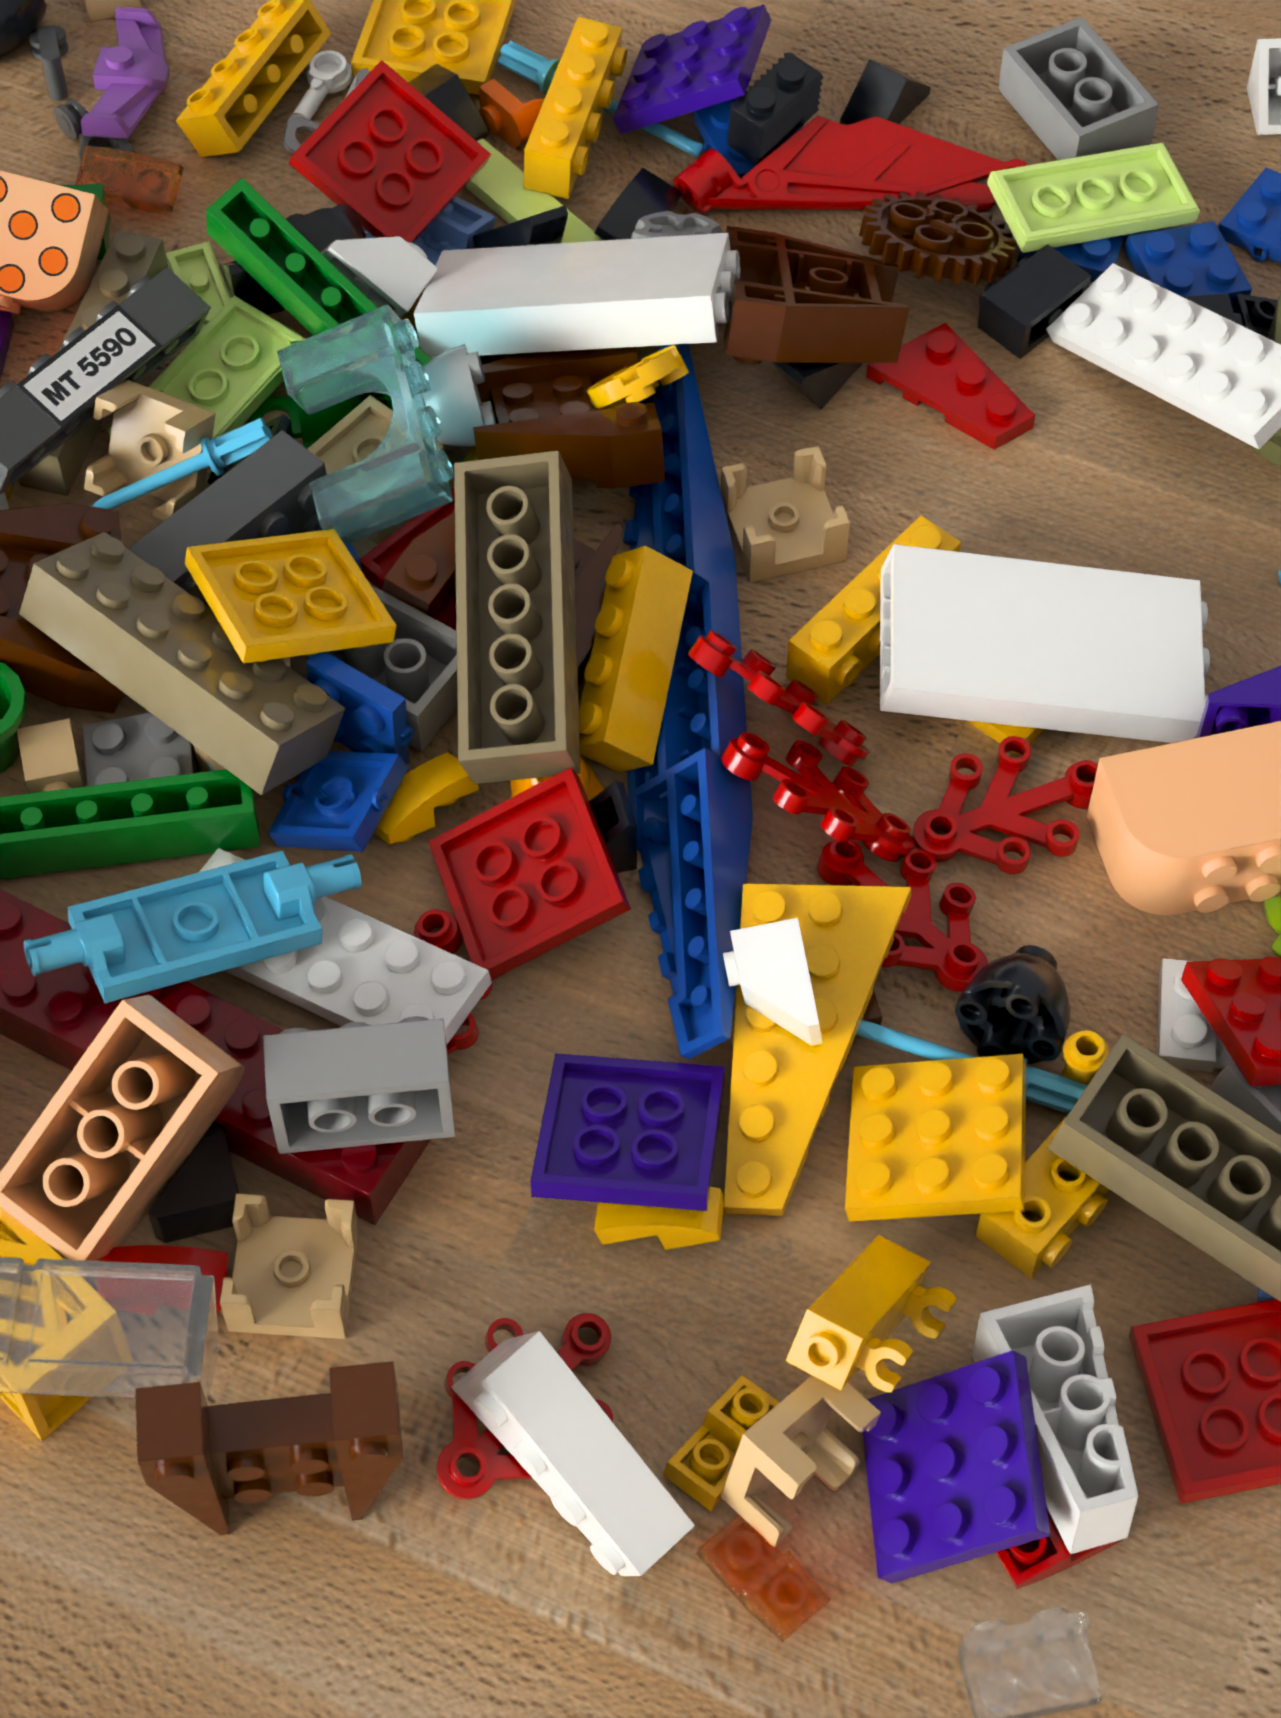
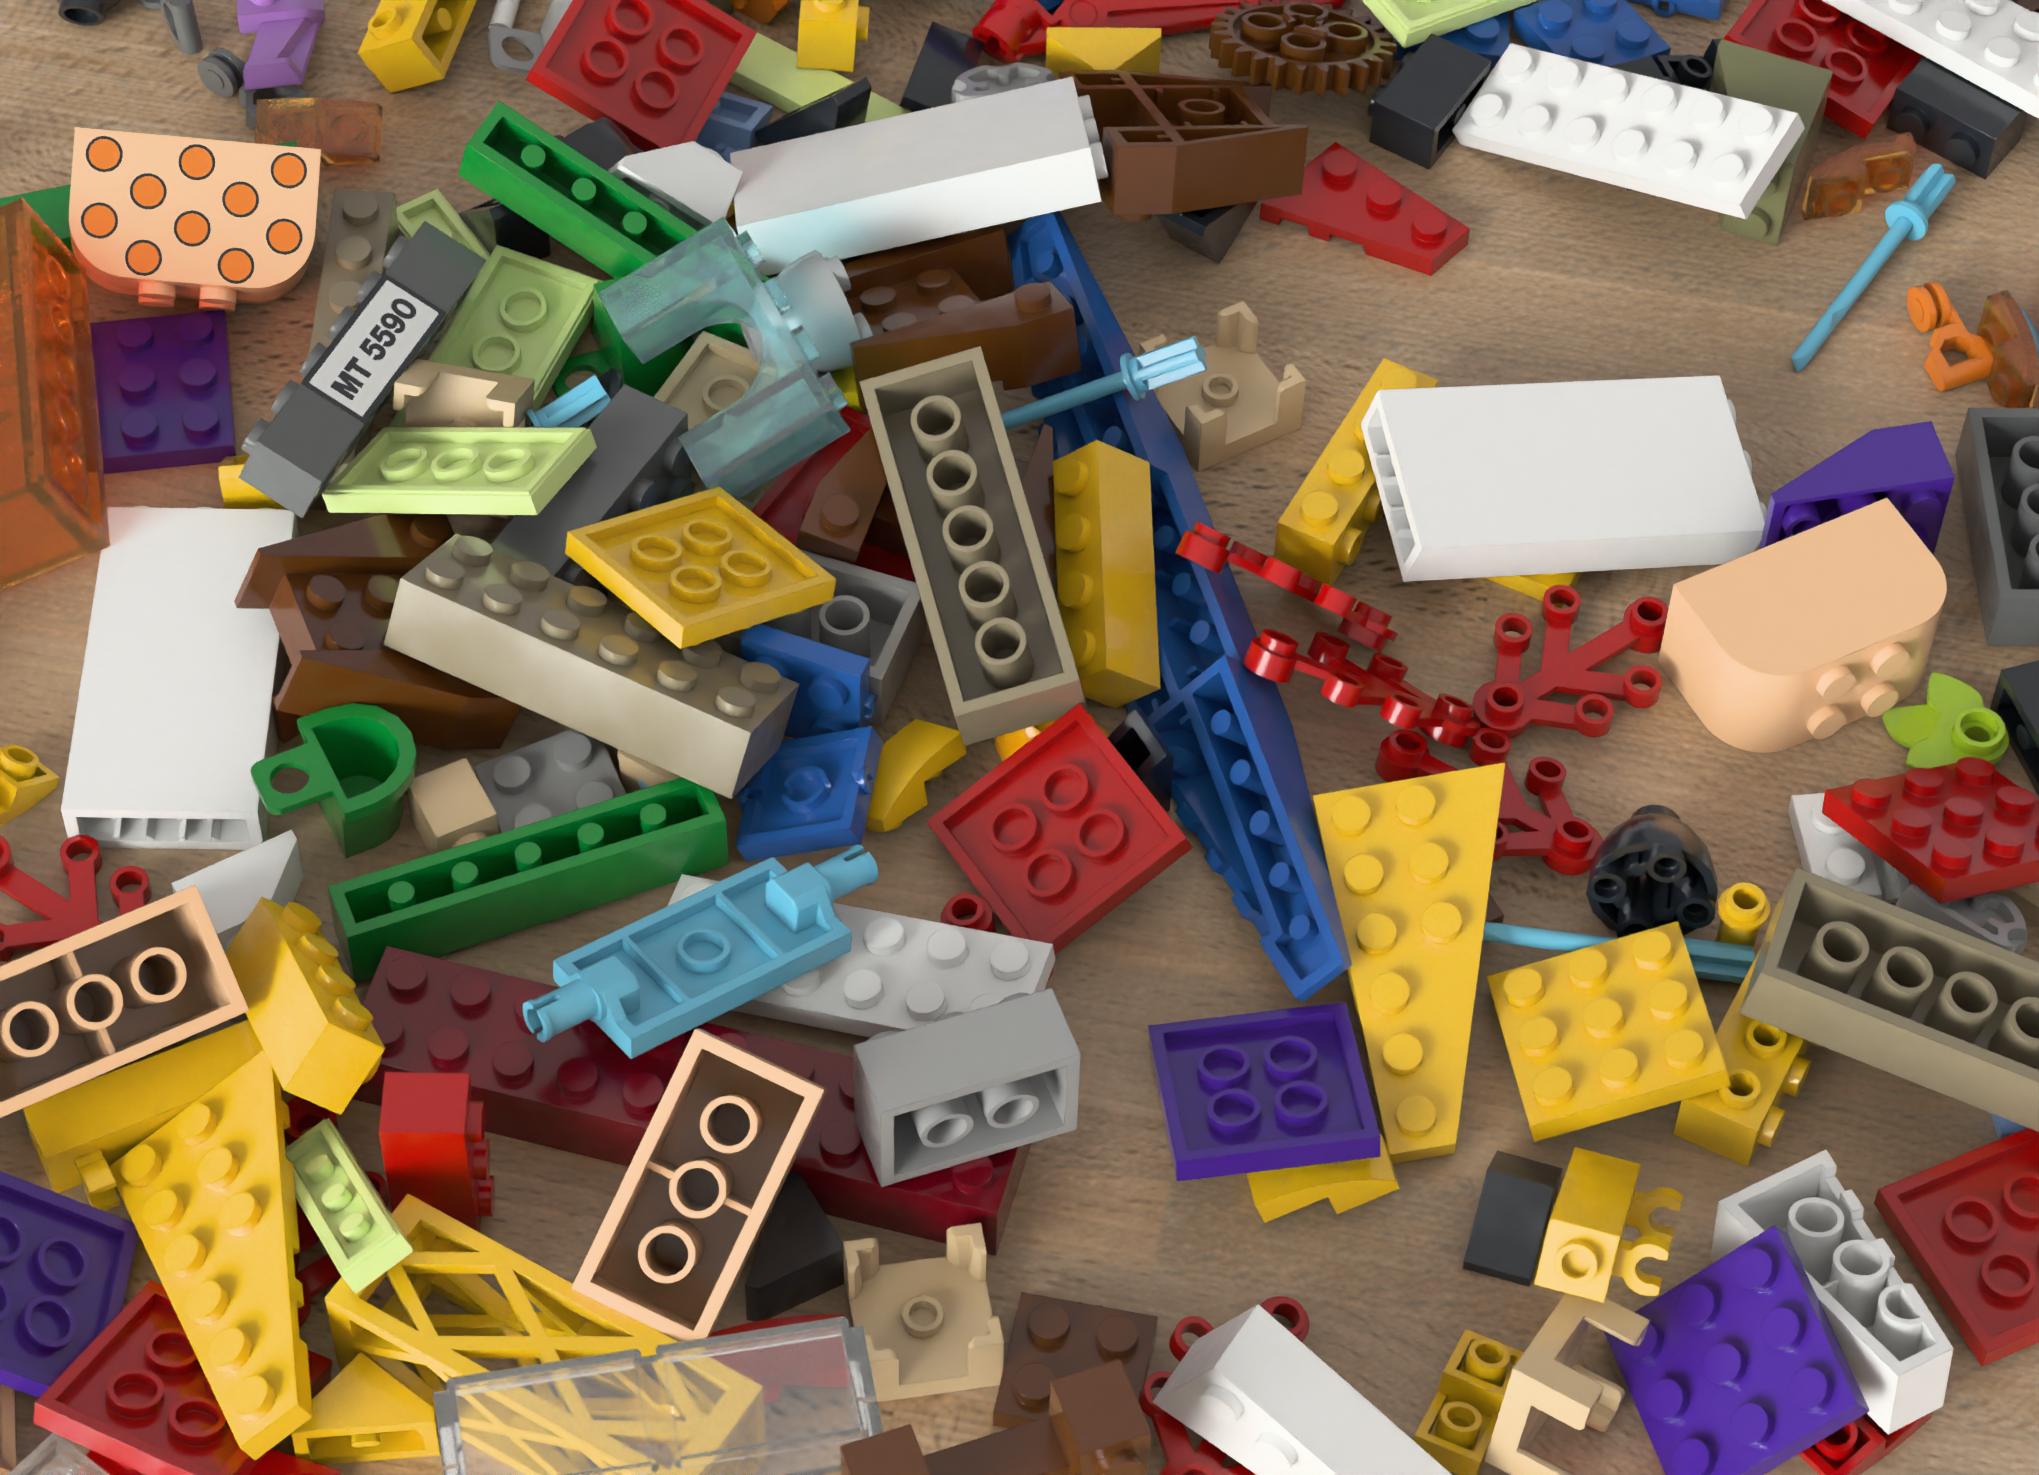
camera: 15 degrees left, 5 degrees down
(131, 479) = (460, 470): none -> yellowish green tile
(416, 1329) = (1061, 1338): none -> reddish brown plate
(639, 379) = (1020, 259): yellow plate -> none
(701, 495) = (1136, 374): none -> medium azure piece
(775, 976) = (1388, 886): white slope -> none
(776, 214) = (1103, 49): none -> yellow slope
(807, 1271) = (1512, 1217): none -> black slope

